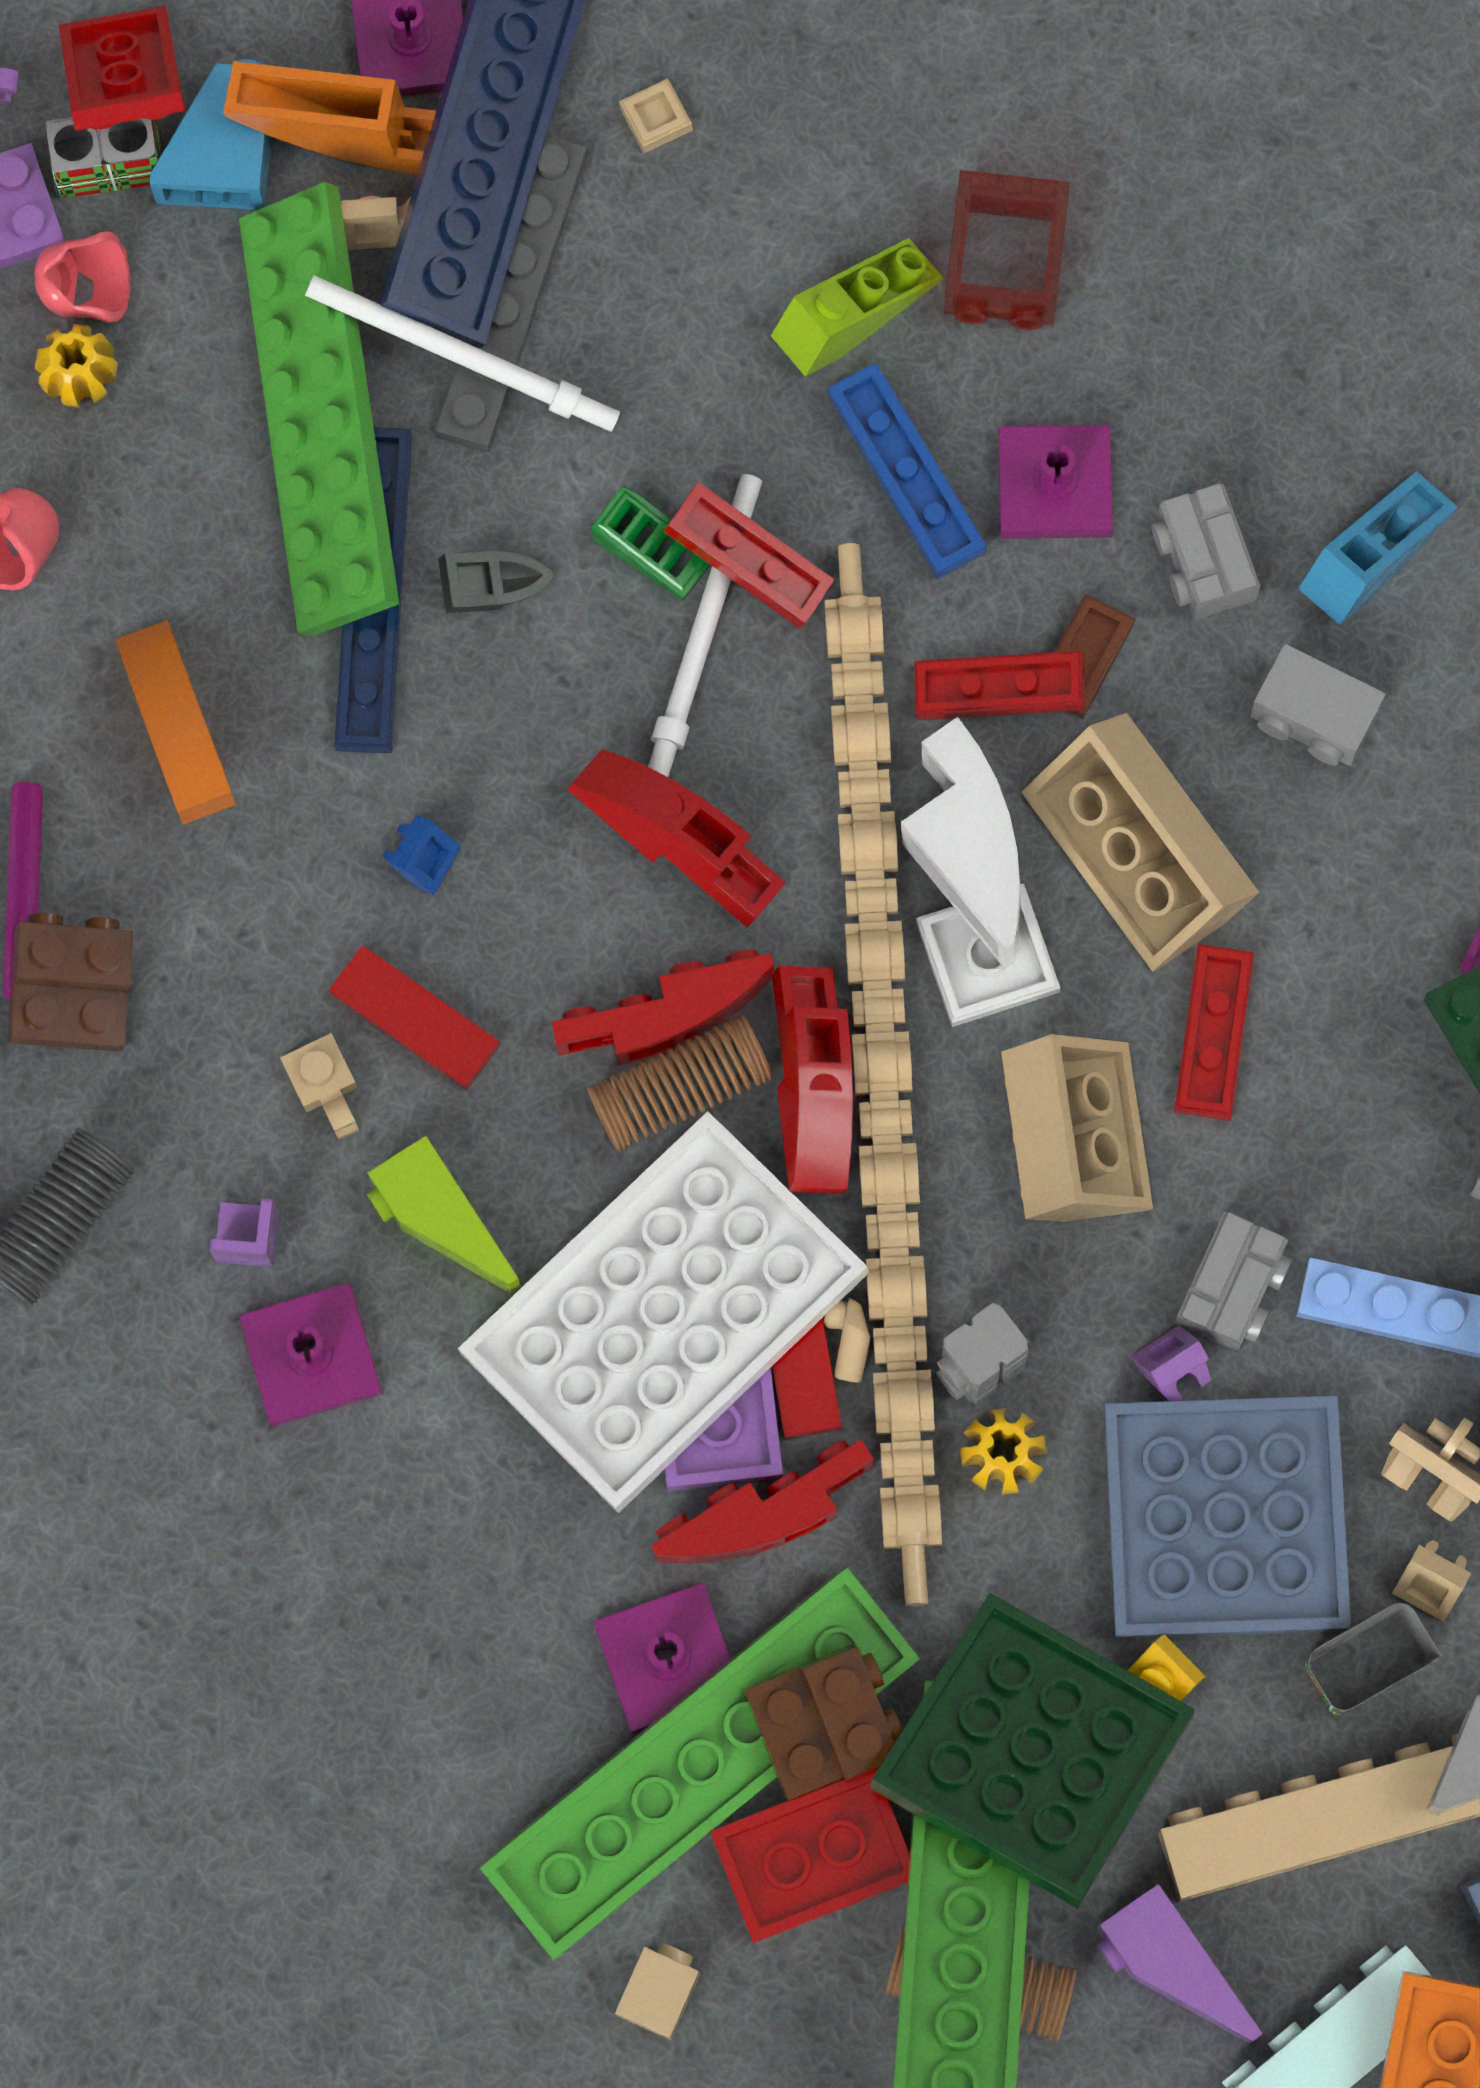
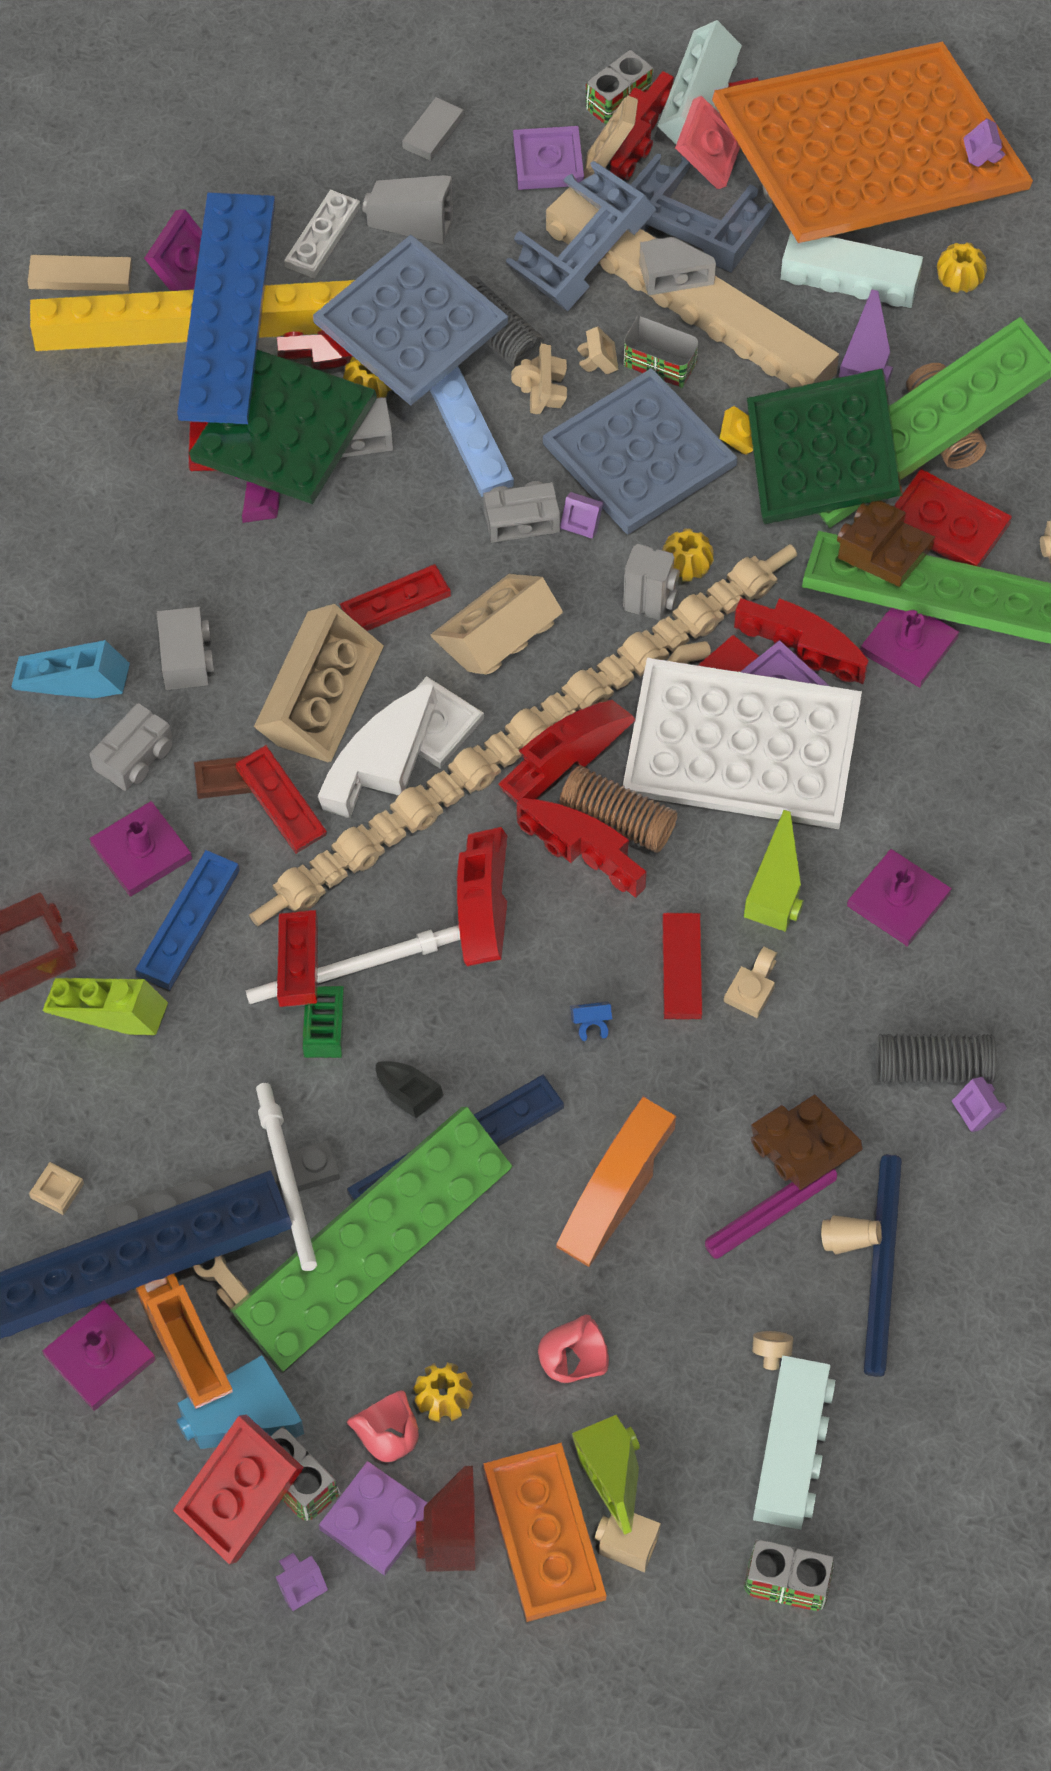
camera: 130 degrees left, 15 degrees down
(246, 1233) = (864, 962): medium lavender panel -> none

